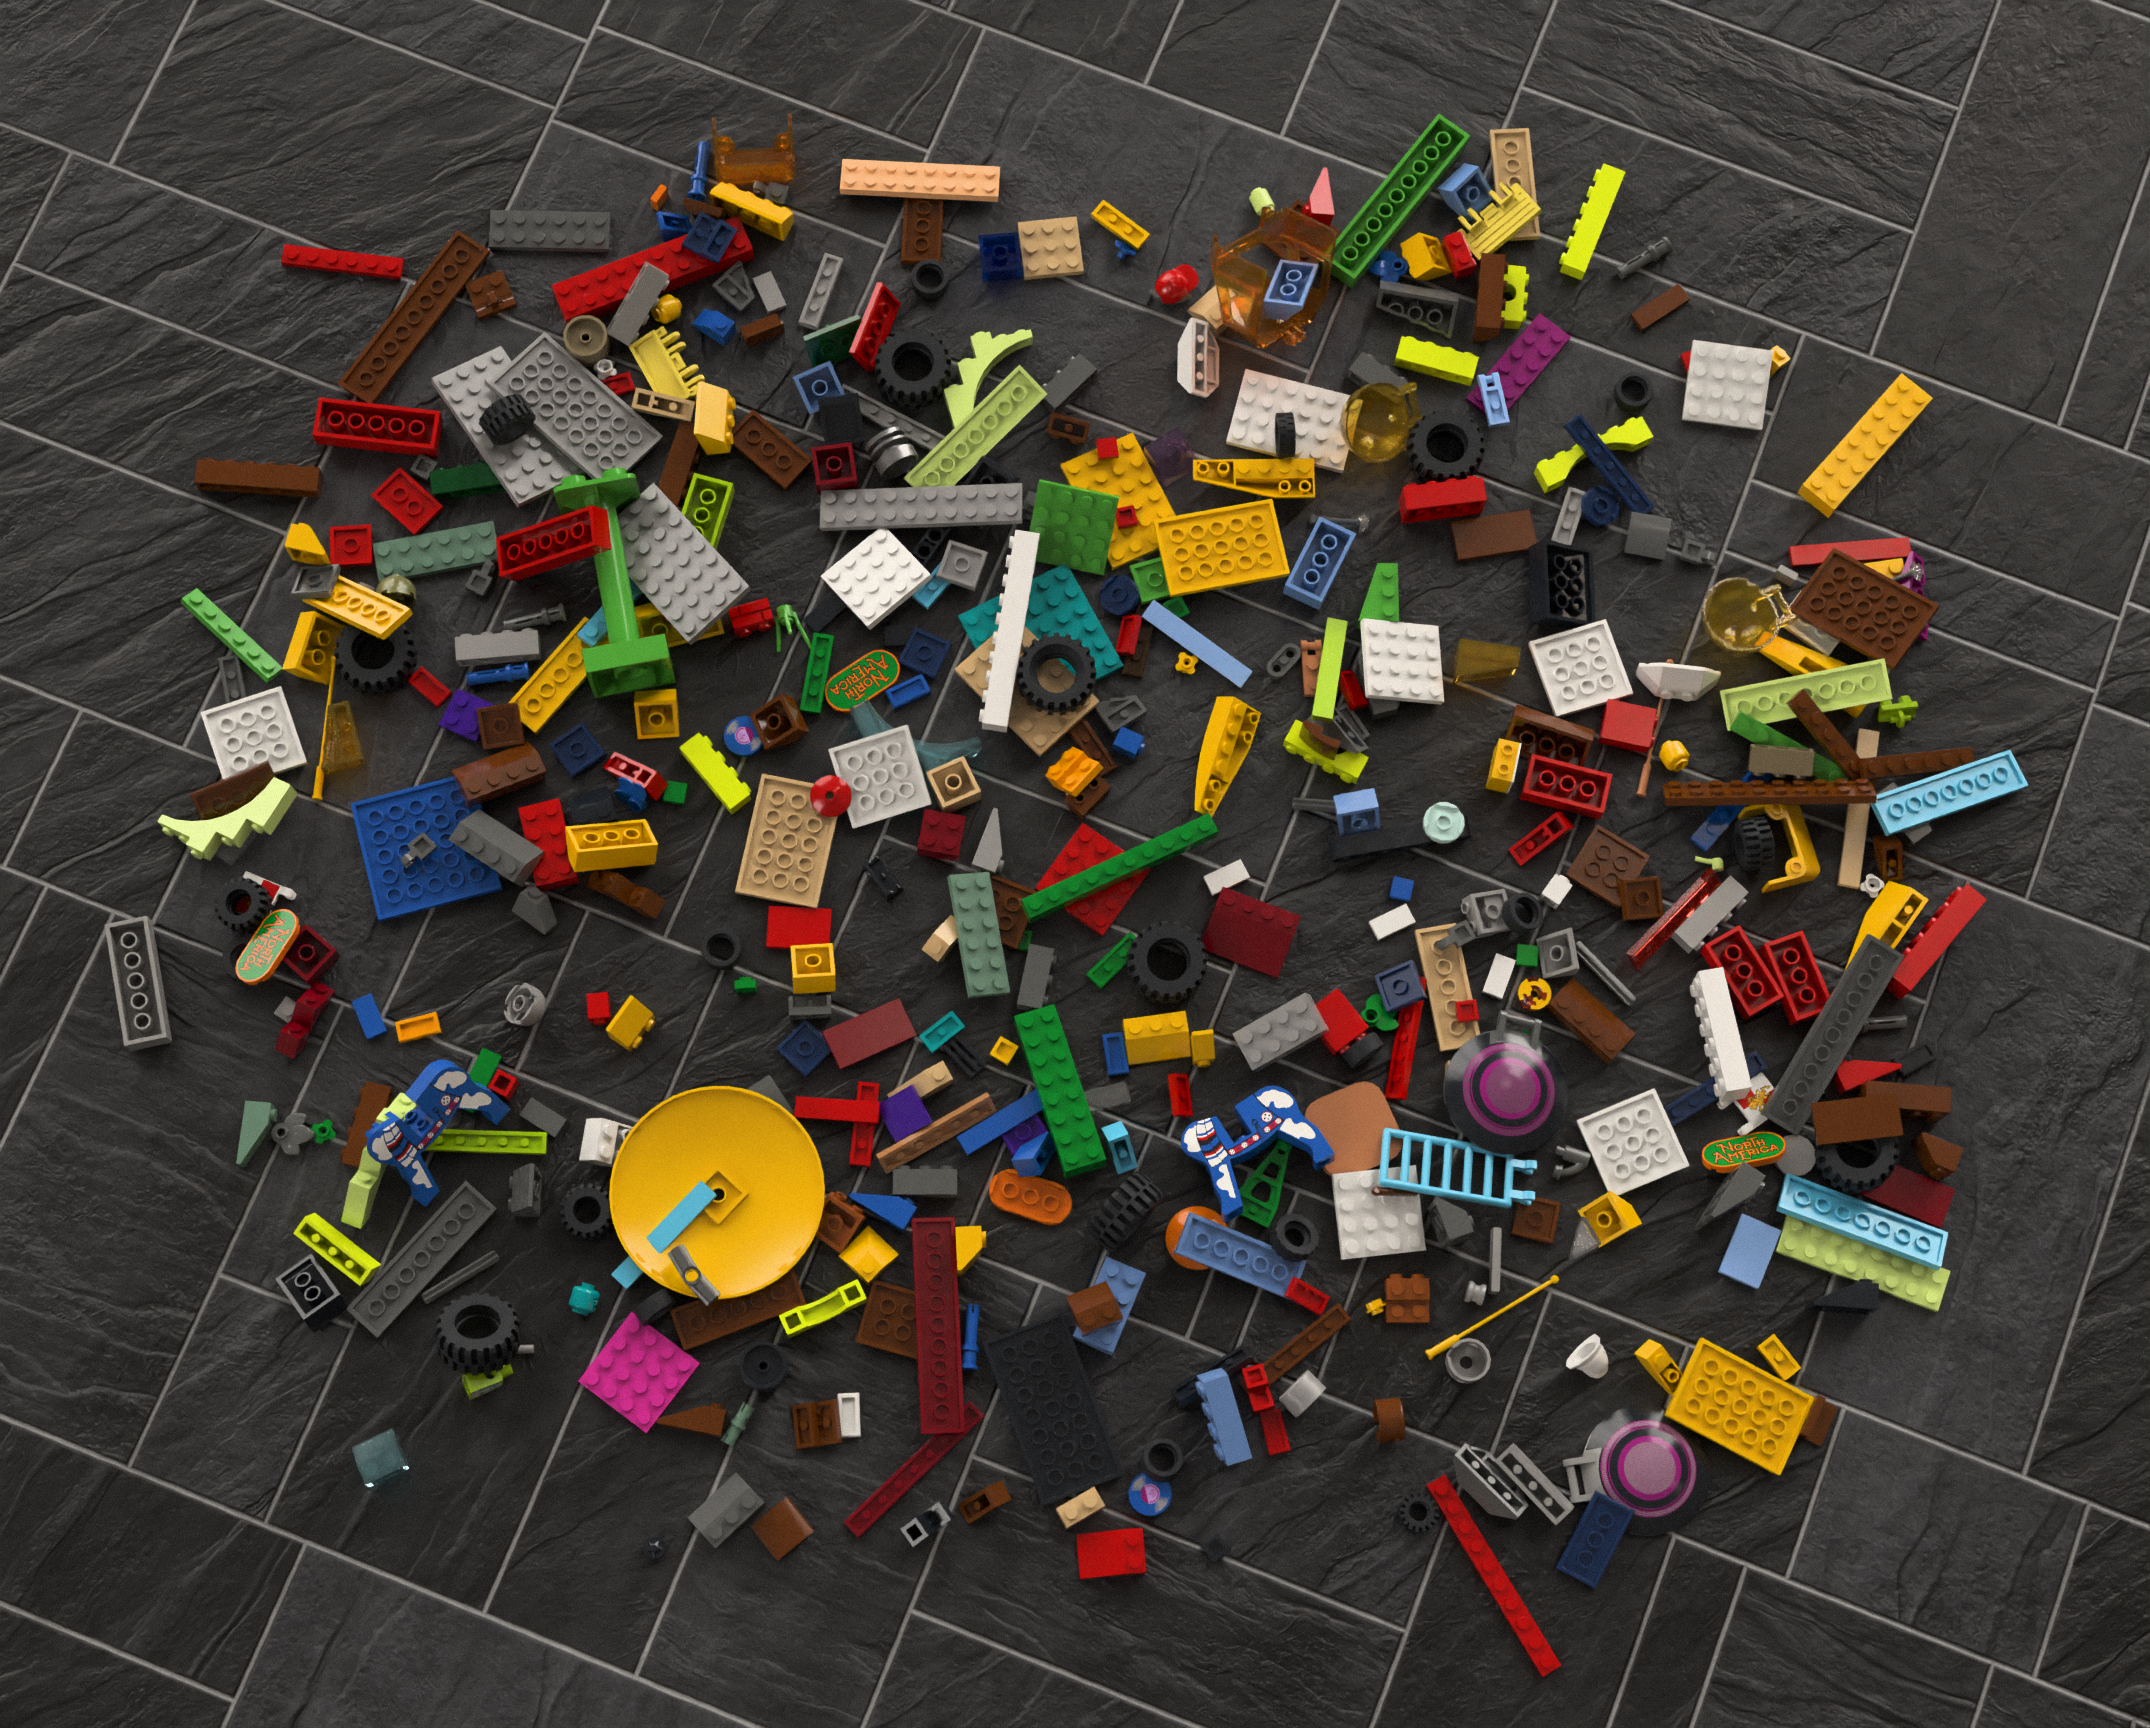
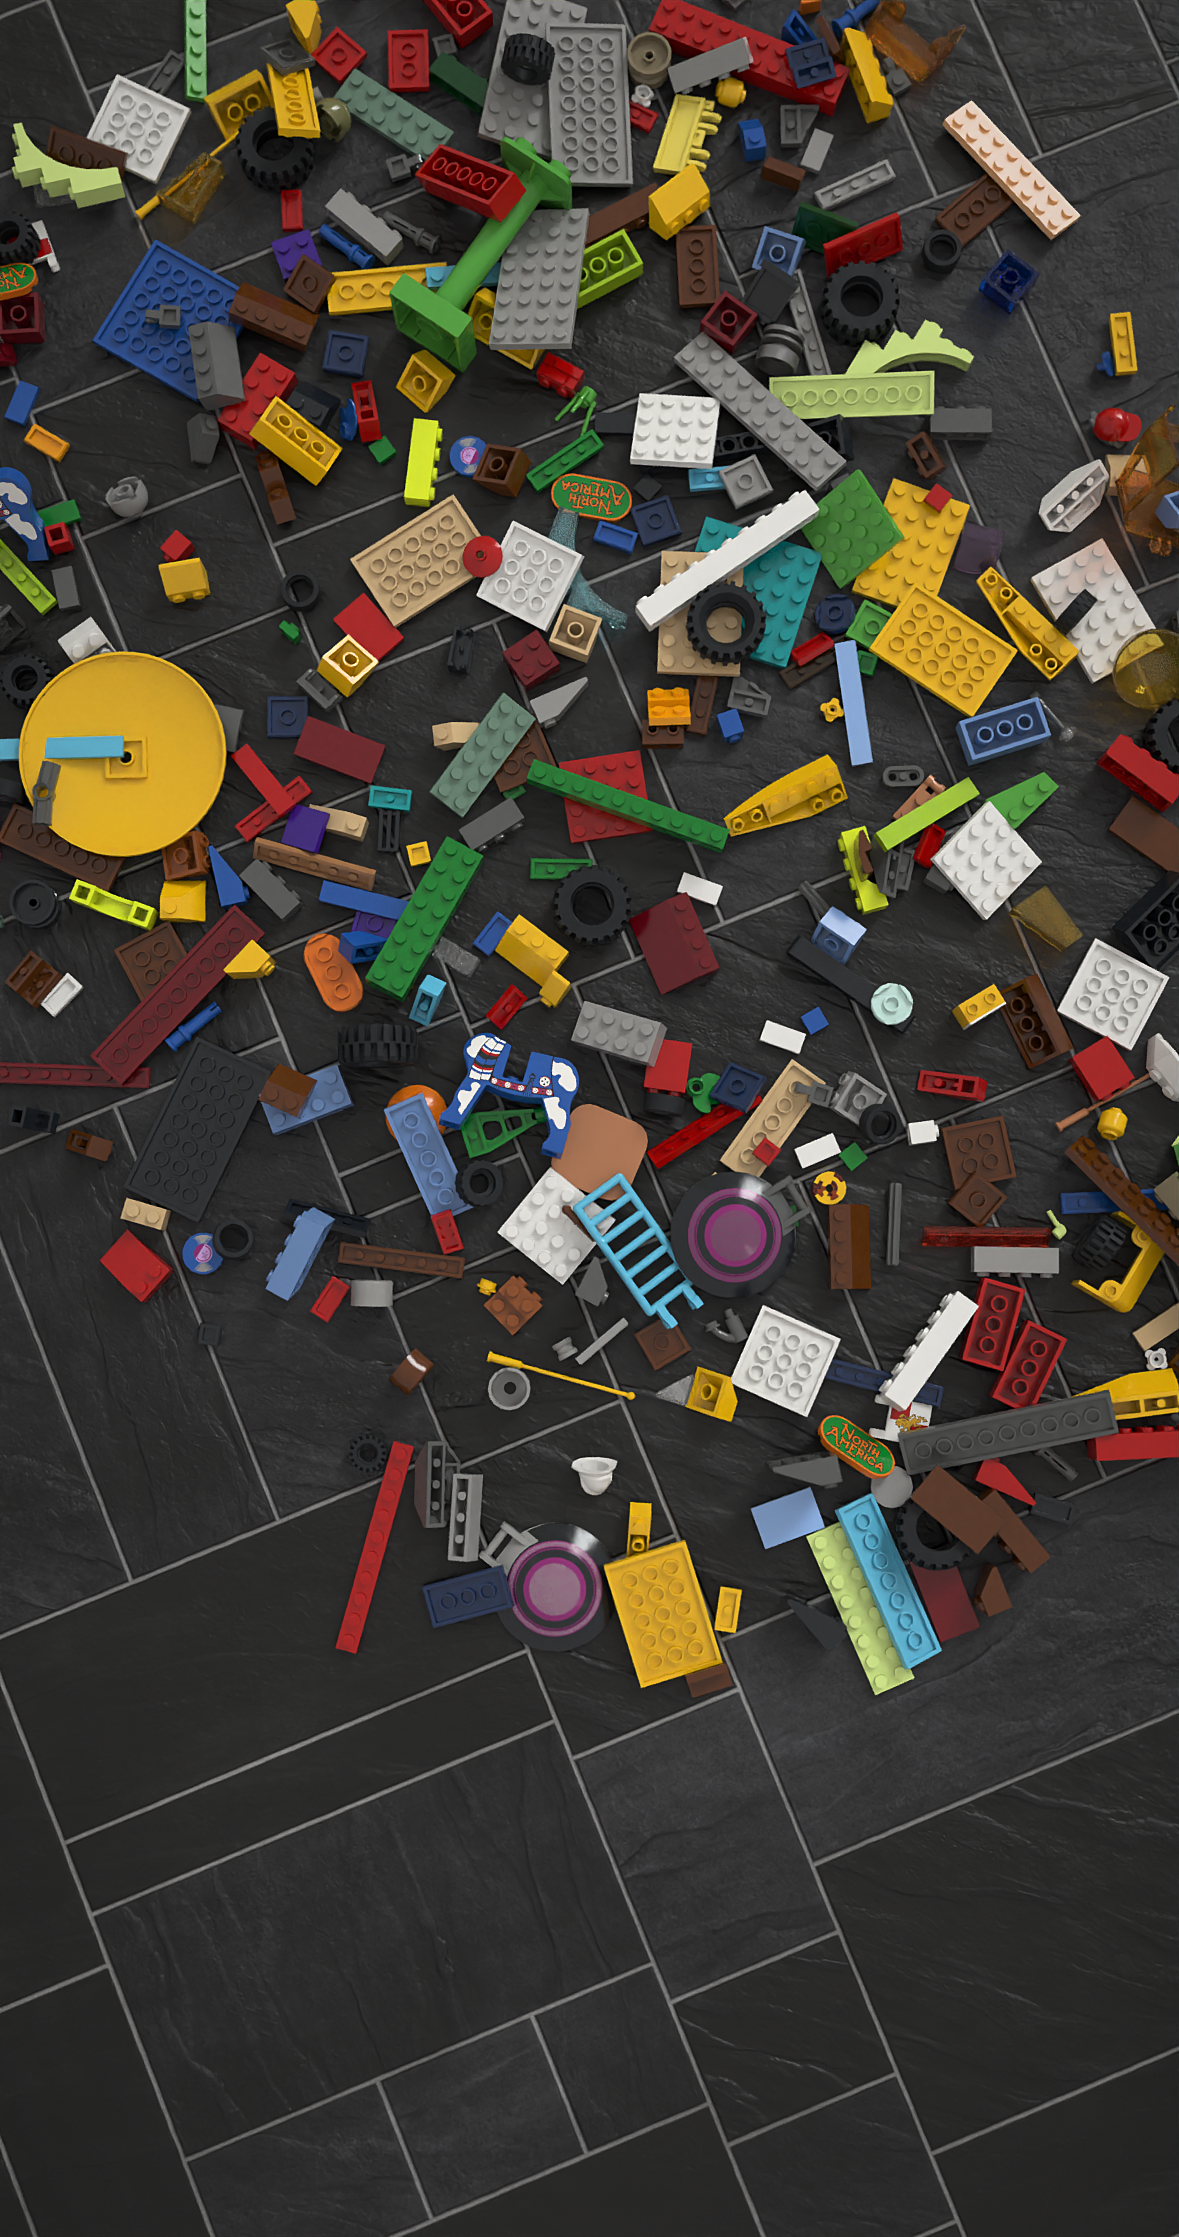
camera: 55 degrees right, 10 degrees up
(662, 405) = (652, 156): tan slope -> none
(1050, 248) = (1054, 312): tan plate -> none
(1126, 517) = (898, 561): red tile -> none
(1258, 1388) = (347, 1259): red slope -> none
(1558, 954) = (874, 1177): light grey slope -> none
(1566, 786) = (1008, 1066): red brick -> none

